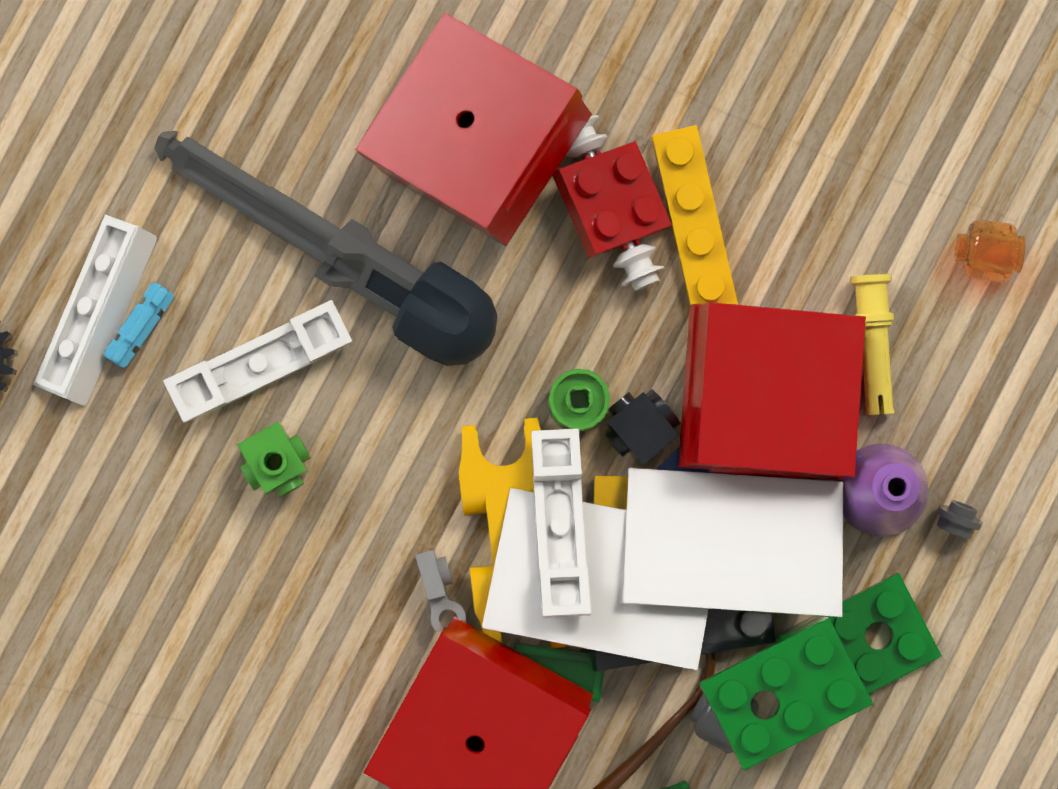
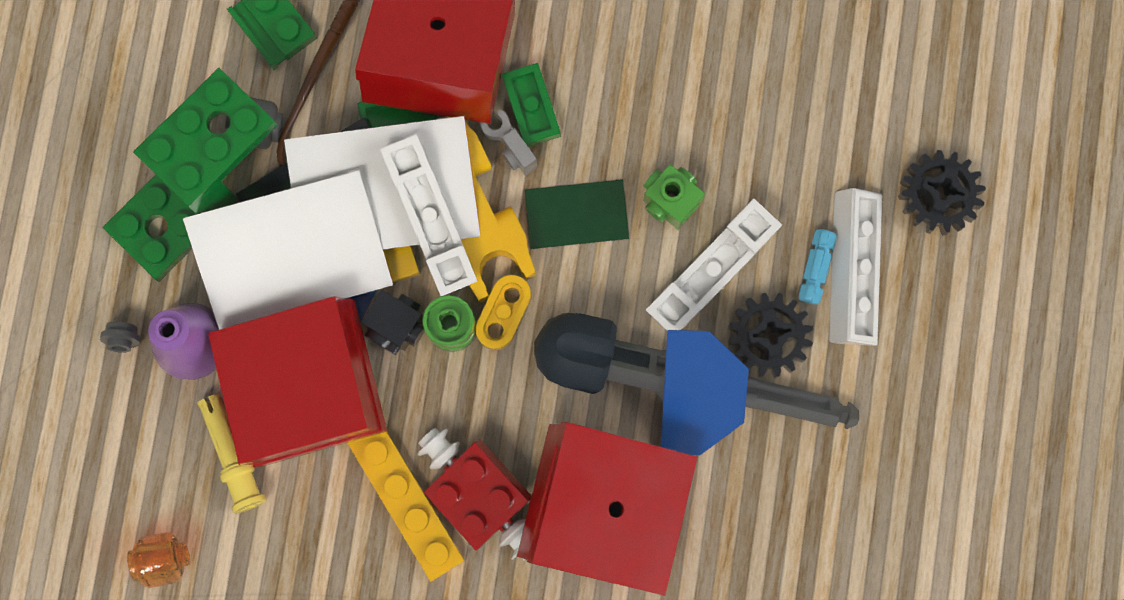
camera: 175 degrees right, 5 degrees down
(225, 243) = (768, 318): none -> black gear
(324, 221) = (701, 392): none -> blue sticker
(390, 484) = (576, 214): none -> dark green sticker
(398, 627) = (531, 105): none -> green plate
(513, 395) = (503, 313): none -> yellow plate

